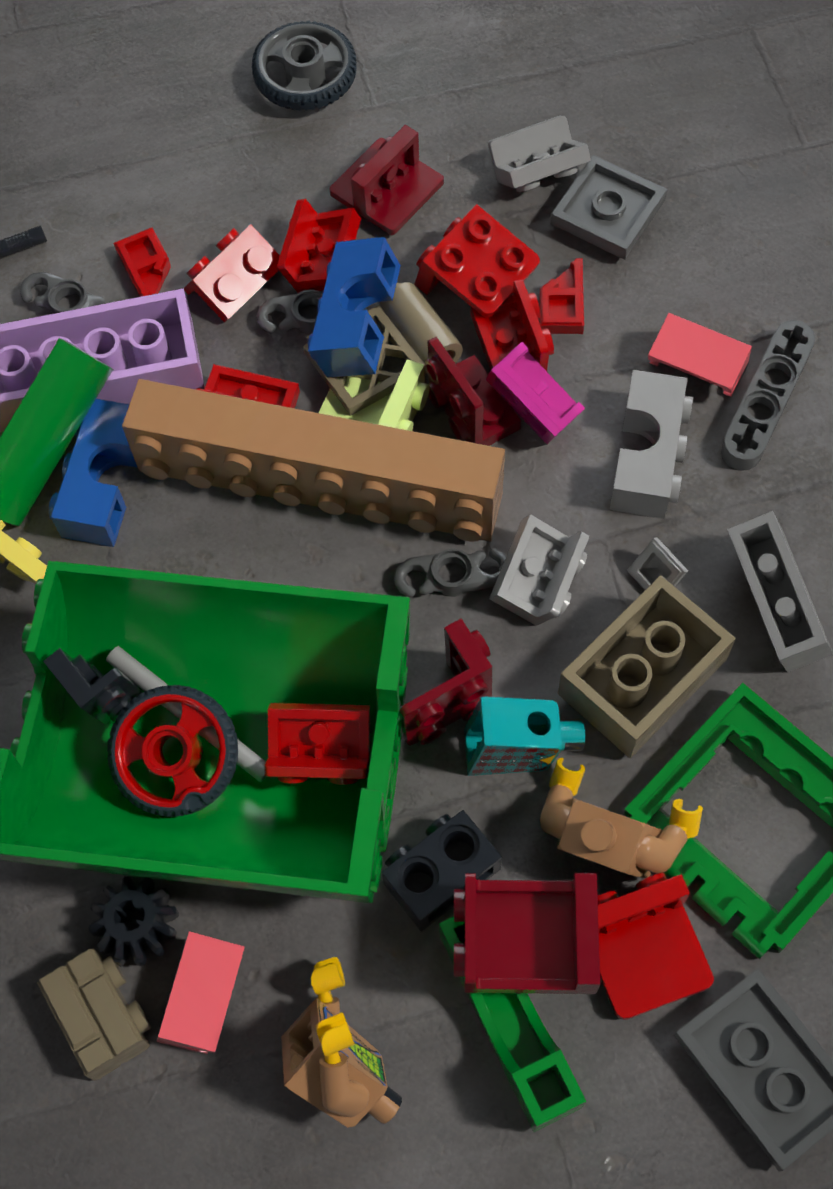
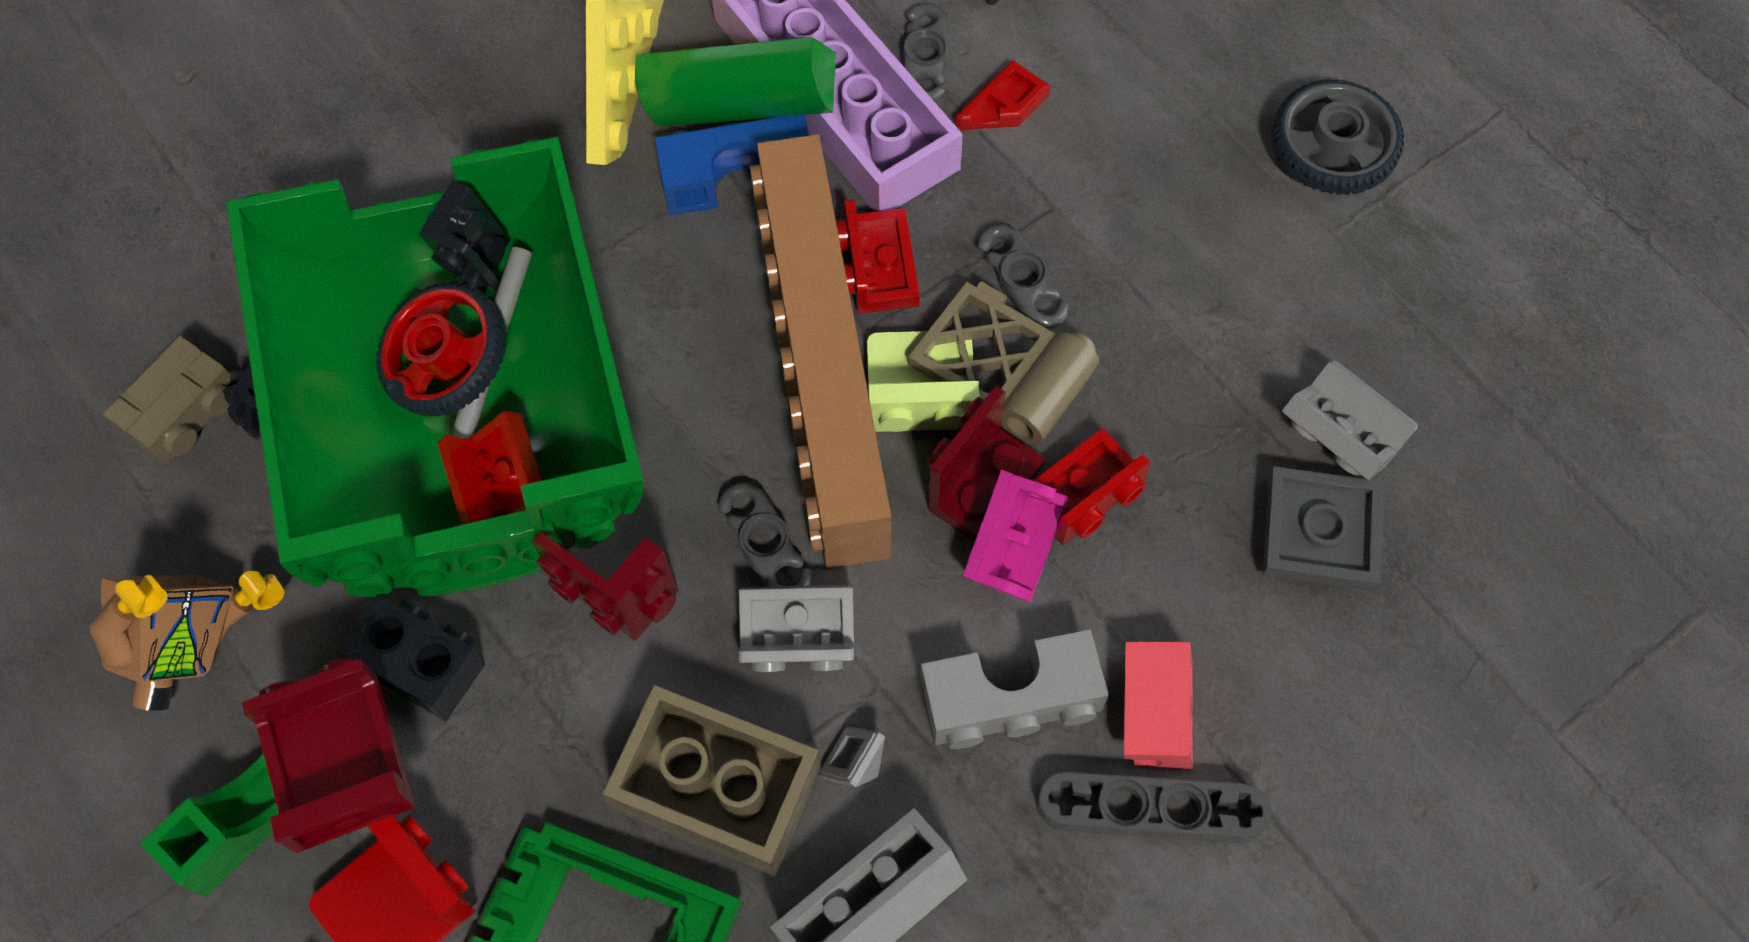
camera: 65 degrees right, 0 degrees up
(200, 993) = (210, 481): coral hinge -> none
(235, 273) = (1031, 182): bracket -> none
(312, 243) = (1102, 245): red bracket -> none
(344, 333) = (1060, 291): blue arch -> none
(388, 181) = (1227, 284): dark red bracket -> none
(477, 262) = (1159, 412): red bracket -> none
(518, 736) = (570, 657): teal torso -> none
(563, 301) = (1169, 528): red tile -> none
(611, 837) = (491, 812): medium nougat torso -> none

